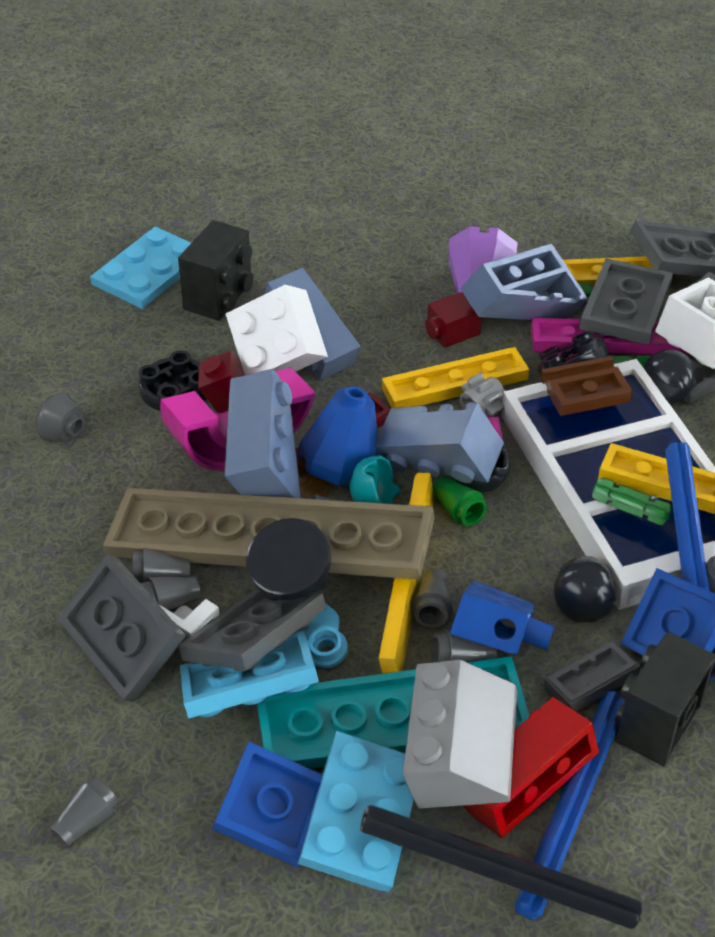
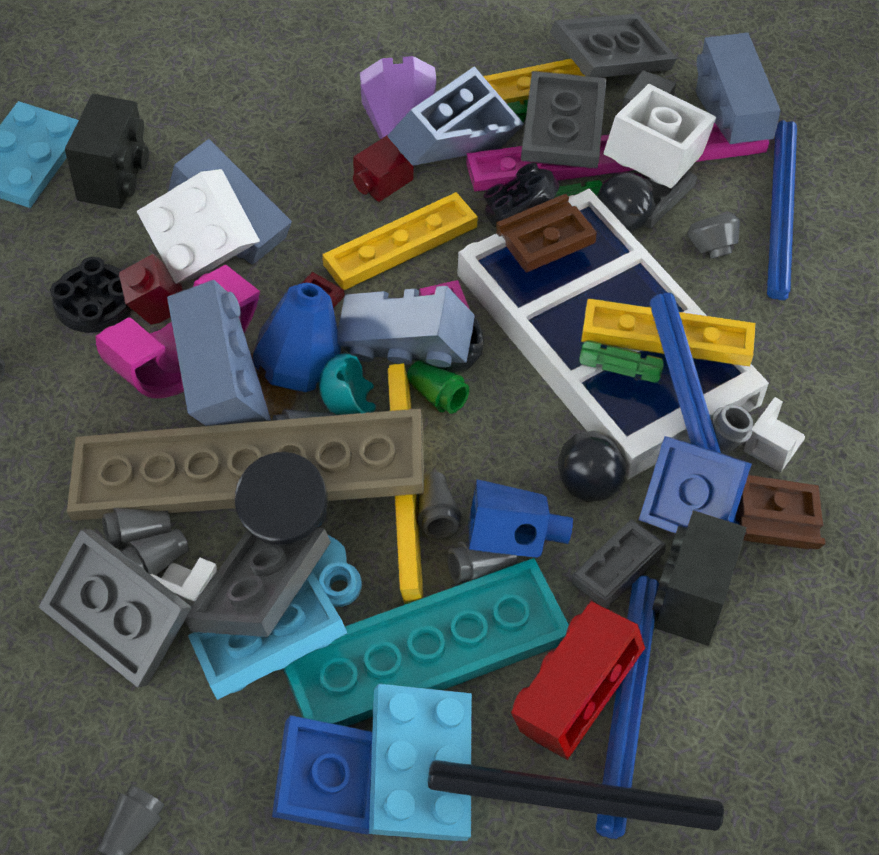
camera: 15 degrees left, 10 degrees up
(460, 736) = (508, 665): light grey slope -> none
(485, 392) = (435, 259): light grey gear -> none

